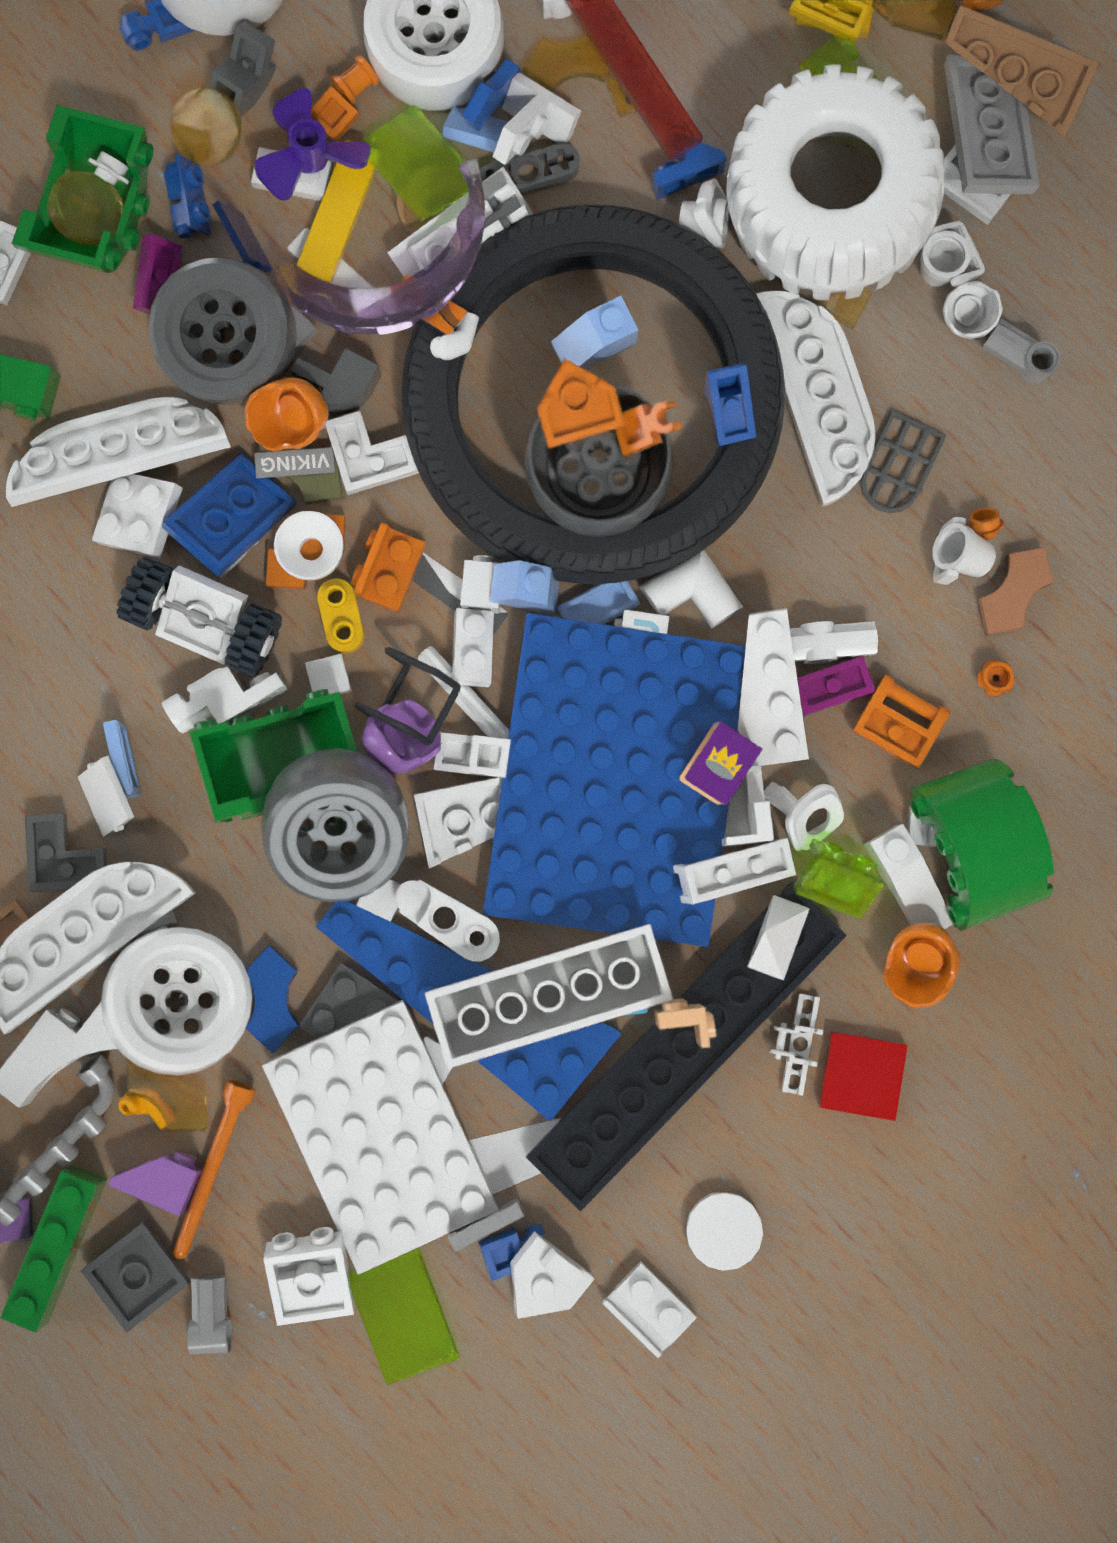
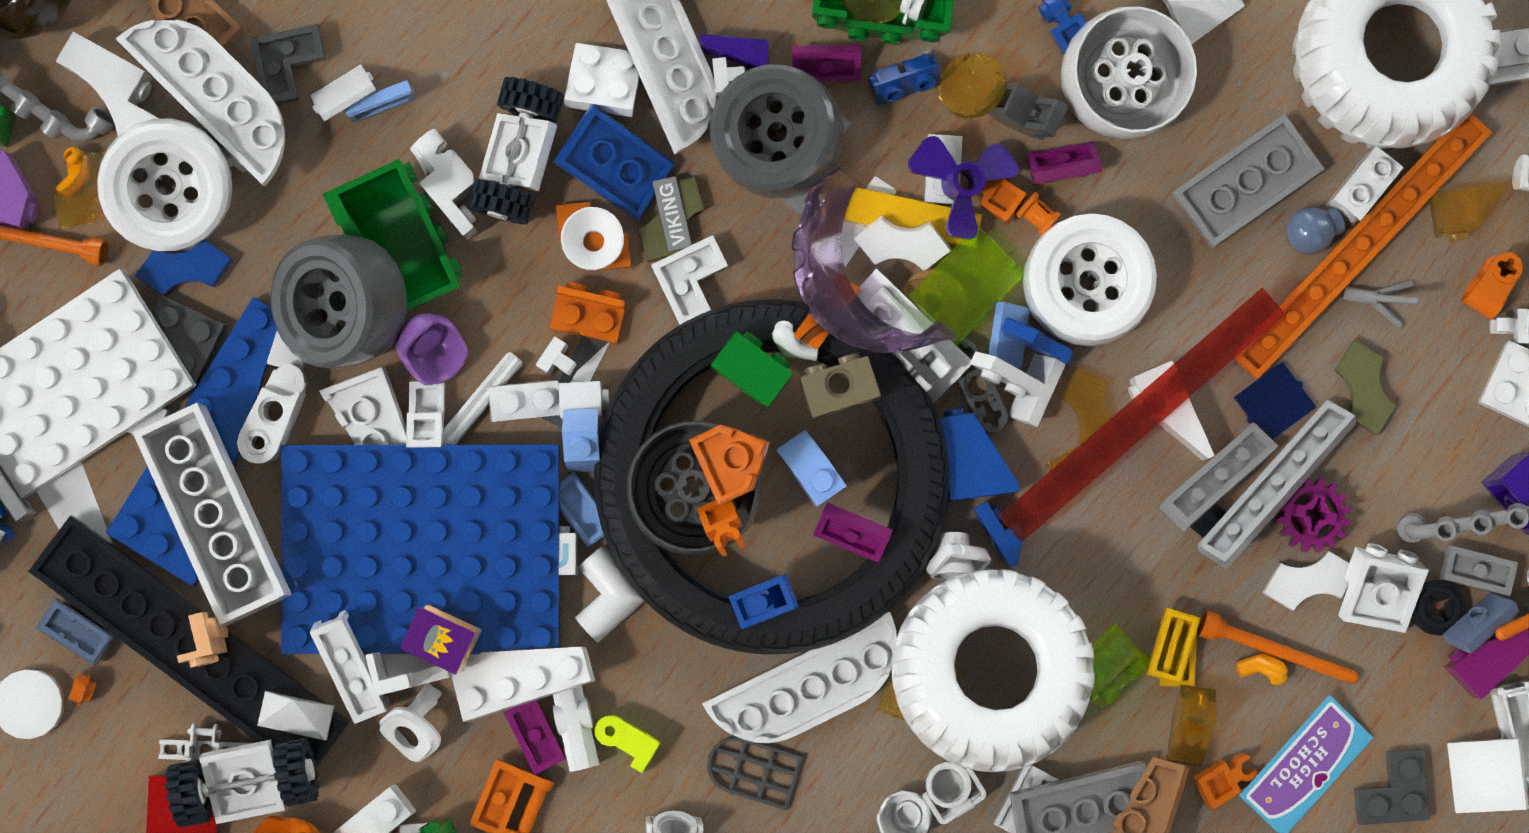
camera: 80 degrees right, 0 degrees up
(129, 364) = (740, 50): none -> dark purple slope
(154, 384) = (724, 75): none -> white tile
(242, 236) = (871, 135): clear blue piece -> none
(286, 414) = (708, 199): orange piece -> none
(304, 45) = (1064, 162): none -> magenta plate
(329, 674) = (481, 274): white tile -> none
(340, 615) = (539, 279): yellow plate -> none
(347, 385) = (746, 249): dark grey brick -> none
(368, 208) = (886, 241): none -> white tile
(407, 661) = (500, 341): black piece -> none
(432, 607) = (555, 357): none -> white tile
(478, 383) = (752, 369): none -> green brick
(513, 272) = (823, 401): none -> dark tan brick
(606, 179) = (974, 462): none -> blue slope
(653, 1168) = (76, 631): none -> sand blue plate
(669, 303) = (852, 532): none -> magenta plate
(716, 1169) = (82, 689): none -> orange plate
(839, 879) = (357, 764): clear neon green bracket -> none
(842, 597) = (620, 733): none -> neon yellow leg
(844, 1001) = (242, 782): none -> plate

